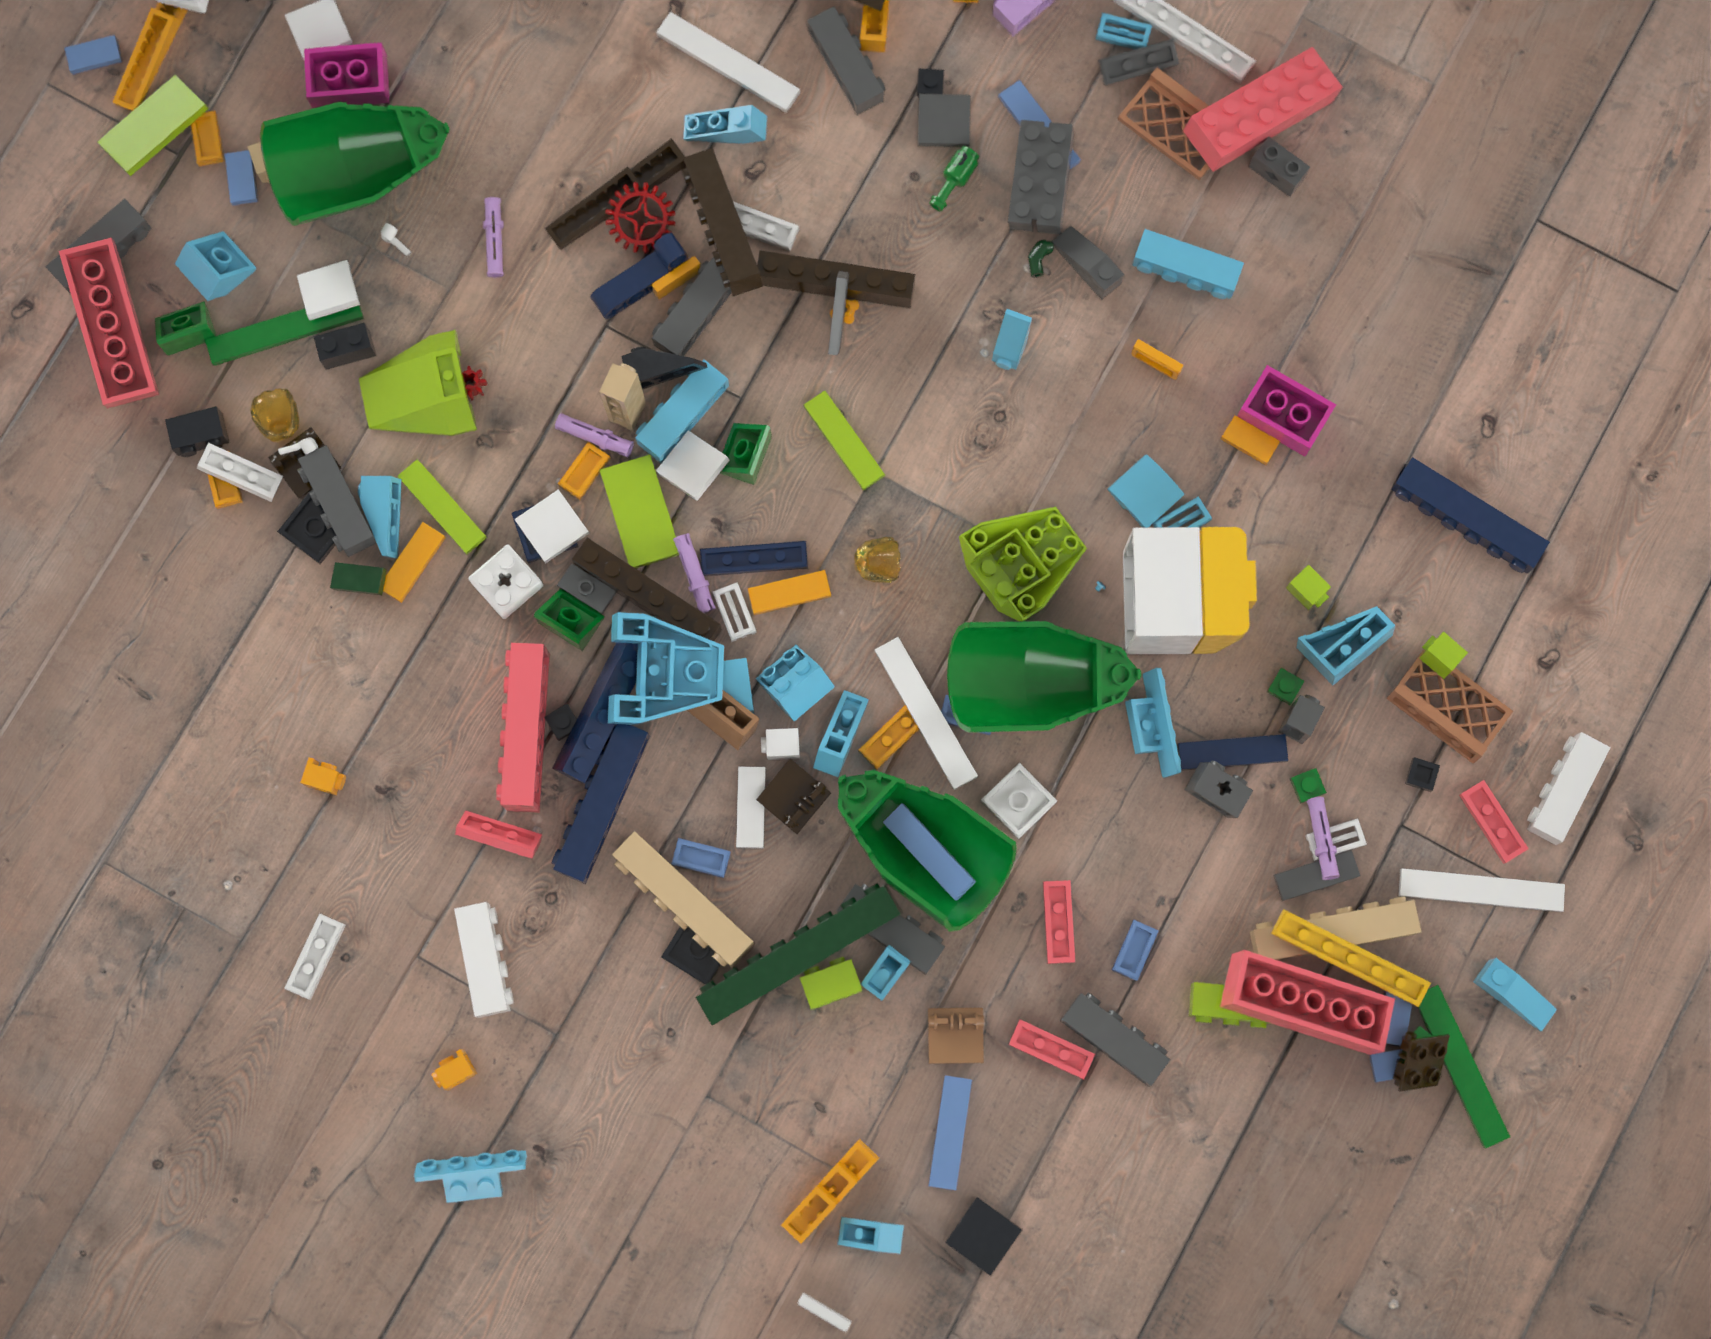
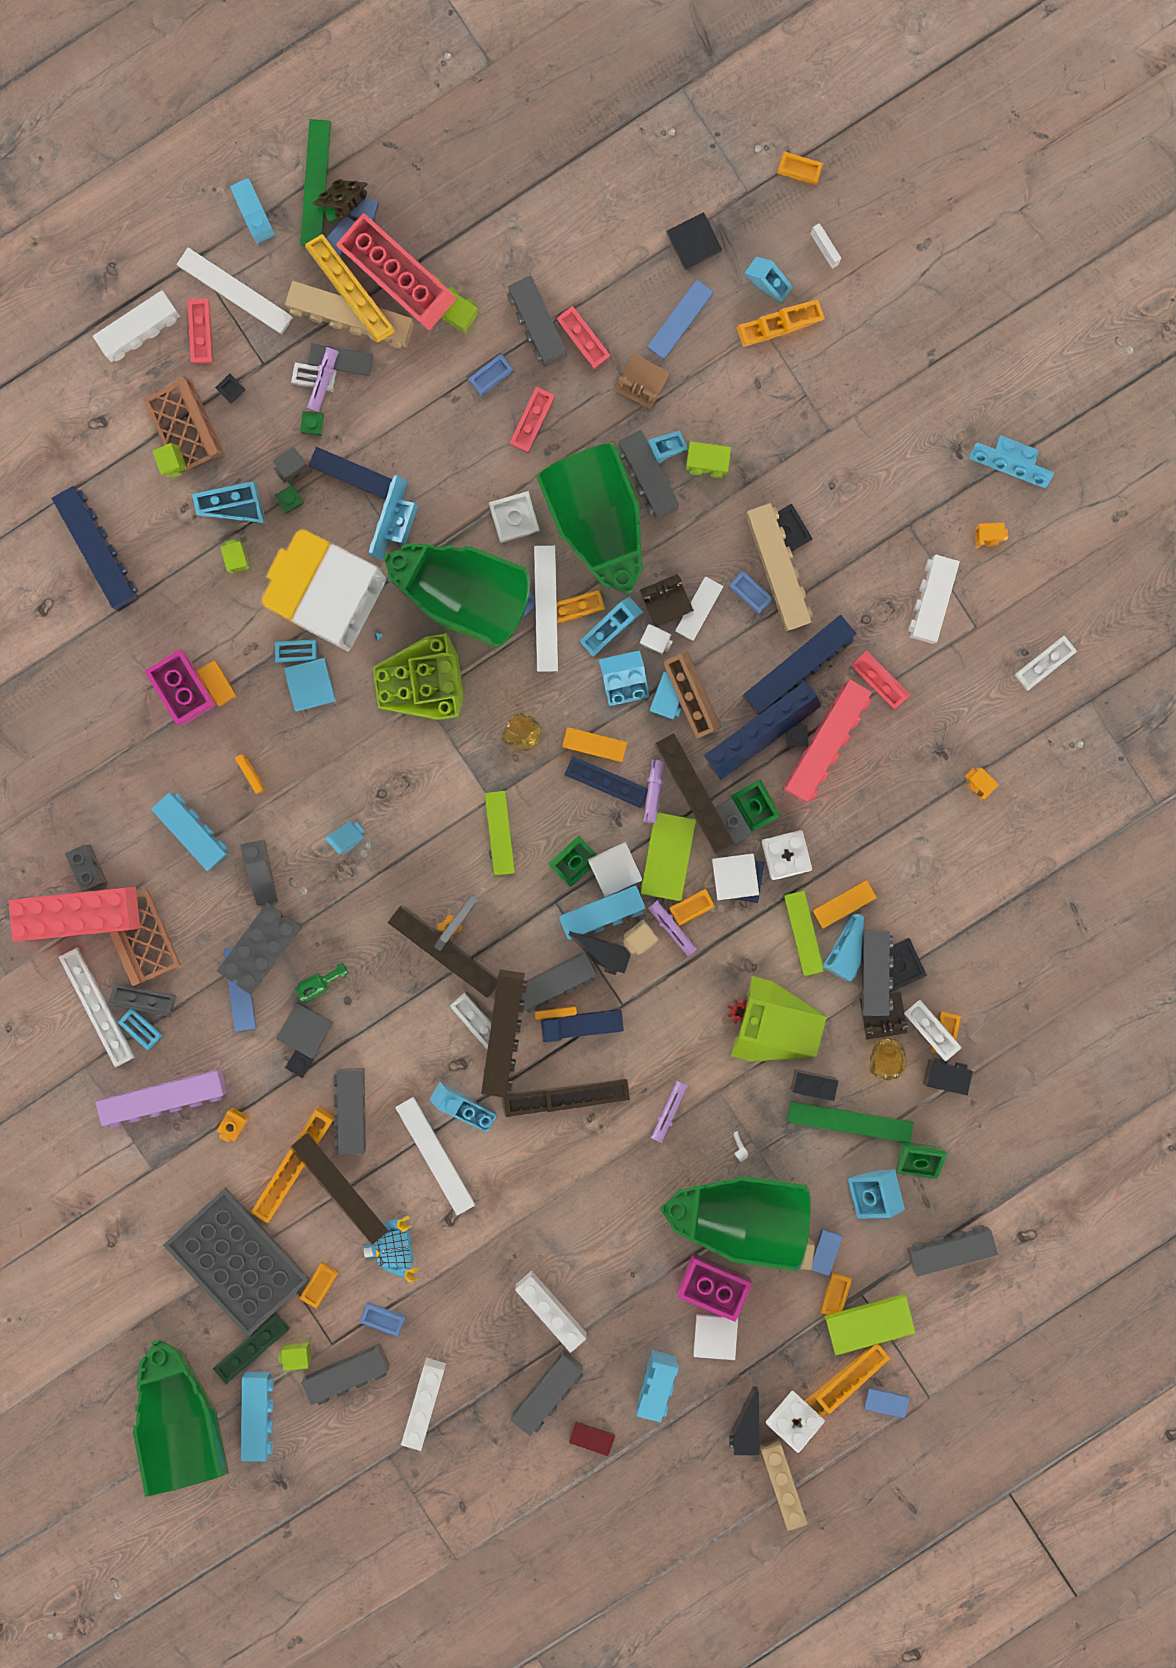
camera: 160 degrees left, 10 degrees up
(108, 323) = (973, 1186): coral brick -> none
(308, 445) = (877, 1023): white hand -> none
(328, 290) = (805, 1133): white tile -> none
(358, 578) = (887, 910): dark green tile -> none
(617, 213) = (568, 1054): red gear -> none
(673, 669) = (706, 721): medium azure wedge -> none
(742, 632) = (641, 734): white tile -> none
(799, 954) = (720, 487): dark green brick -> none
(929, 852) = (595, 510): medium blue tile -> none
(1036, 255) = (293, 895): dark green arm -> none
(1204, 787) = (366, 442): dark grey brick -> none

